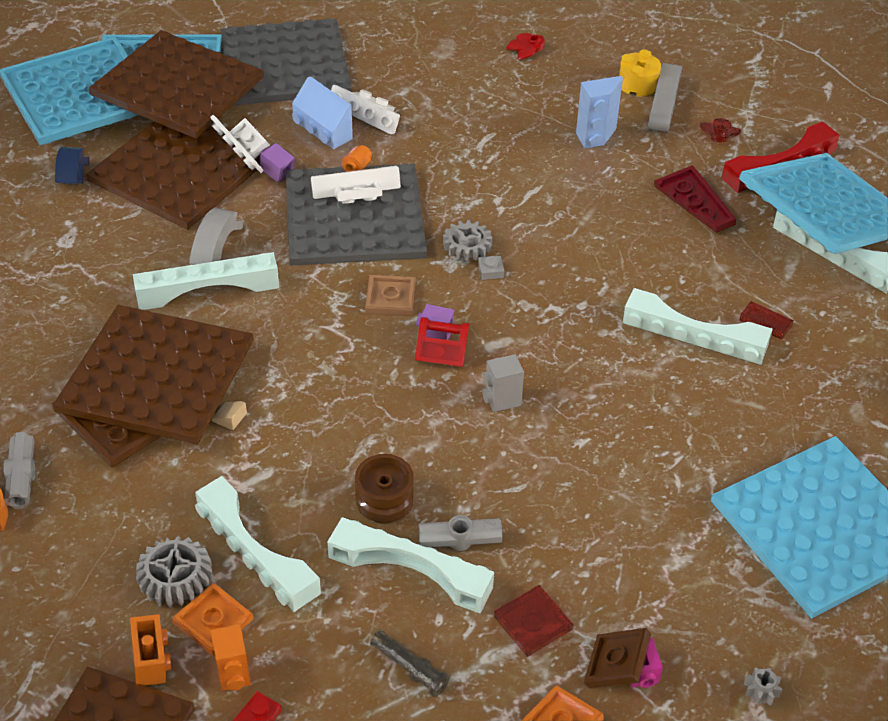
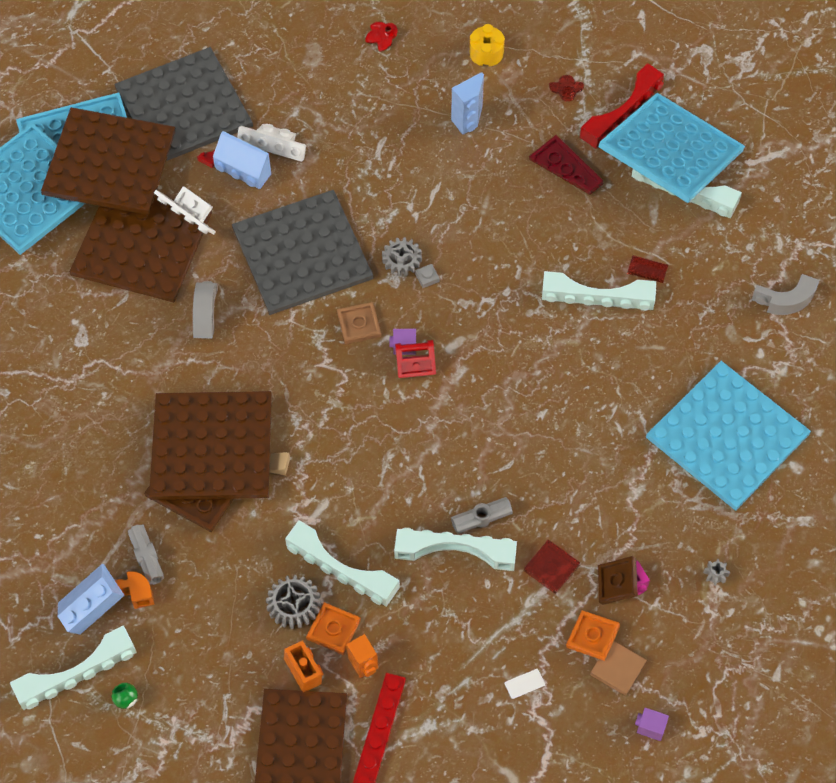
camera: 15 degrees left, 15 degrees up
(70, 165) = (55, 269): dark blue brick -> none
(159, 287) = (185, 364): light aqua arch -> none
(276, 162) = (221, 219): medium lavender brick -> none
(285, 110) = (206, 158): none -> red tile
(356, 184) = (298, 229): white bracket -> none
(357, 159) = (289, 203): orange brick -> none
(384, 488) = (417, 496): reddish brown wheel -> none
(419, 669) = (488, 625): clear smoke pin -> none
(503, 383) = (474, 384): light grey brick -> none
(665, 97) = (514, 65): light grey beam -> none

